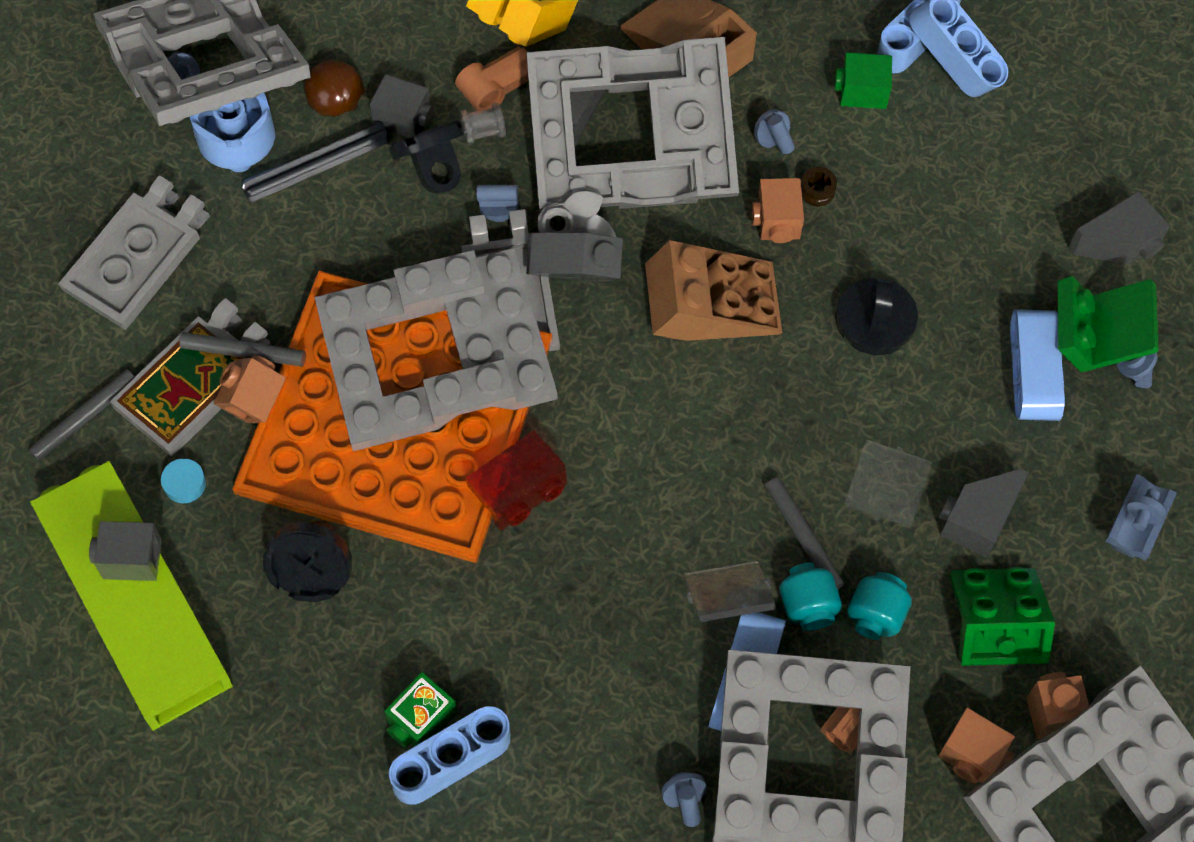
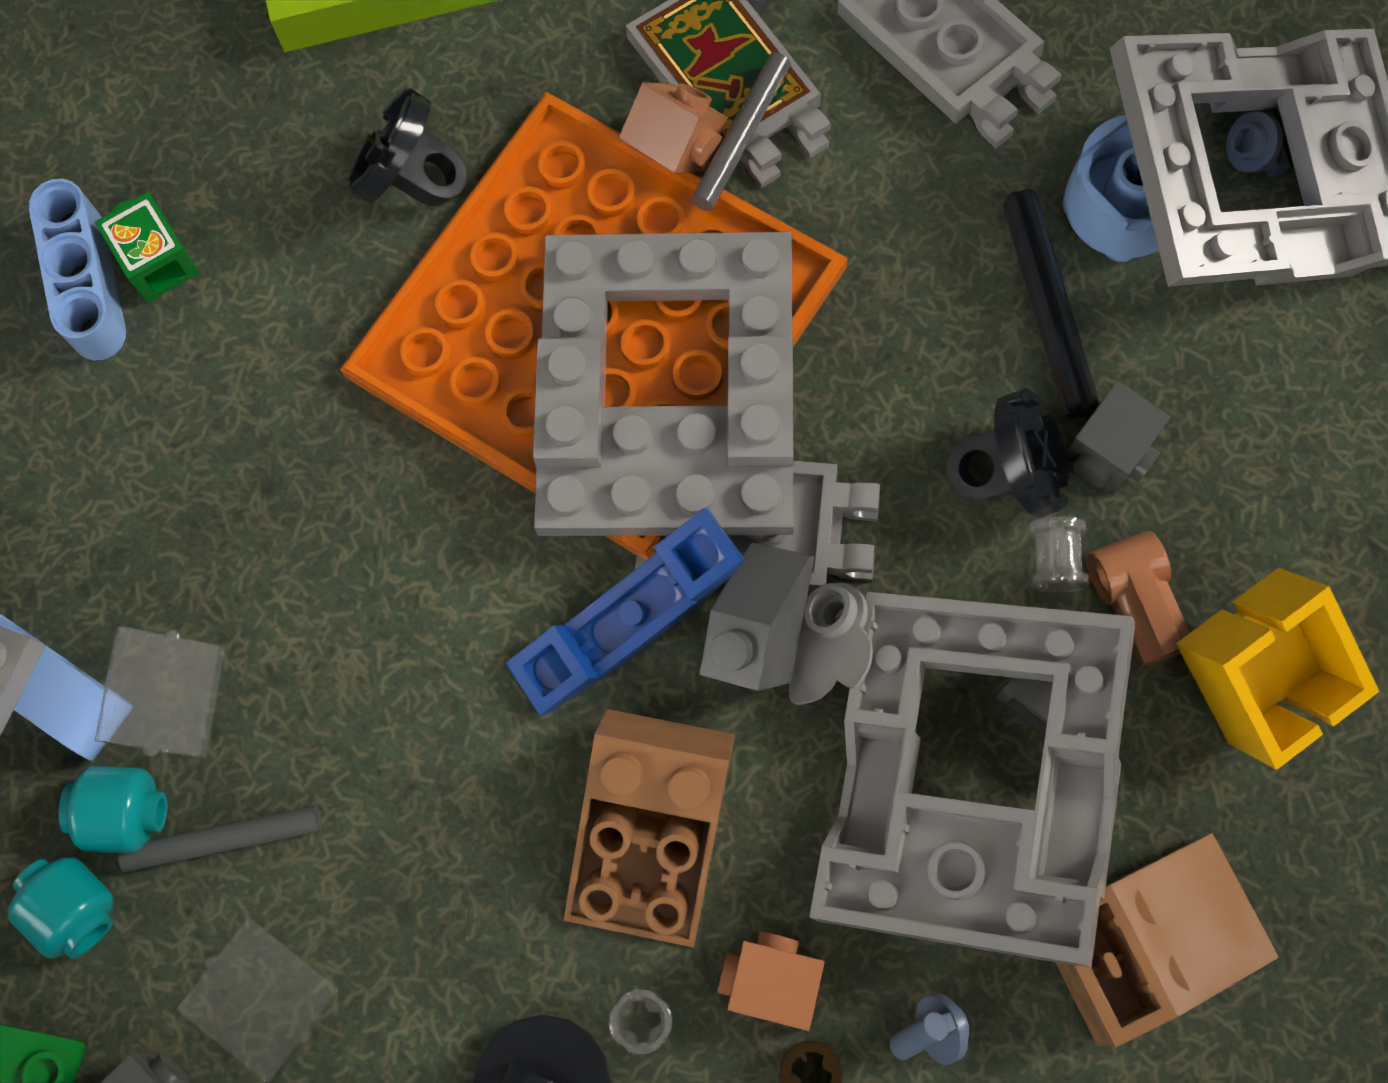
camera: 110 degrees right, 10 degrees up
(183, 480) = (581, 40): medium azure tile -> none
(333, 88) = (1180, 354): reddish brown hair -> none
(497, 201) = (904, 540): sand blue plate -> none
(519, 480) = (429, 446): clear red bracket -> none
(589, 335) = (629, 615): none -> blue slope
(824, 269) = (629, 1038): none -> clear bush

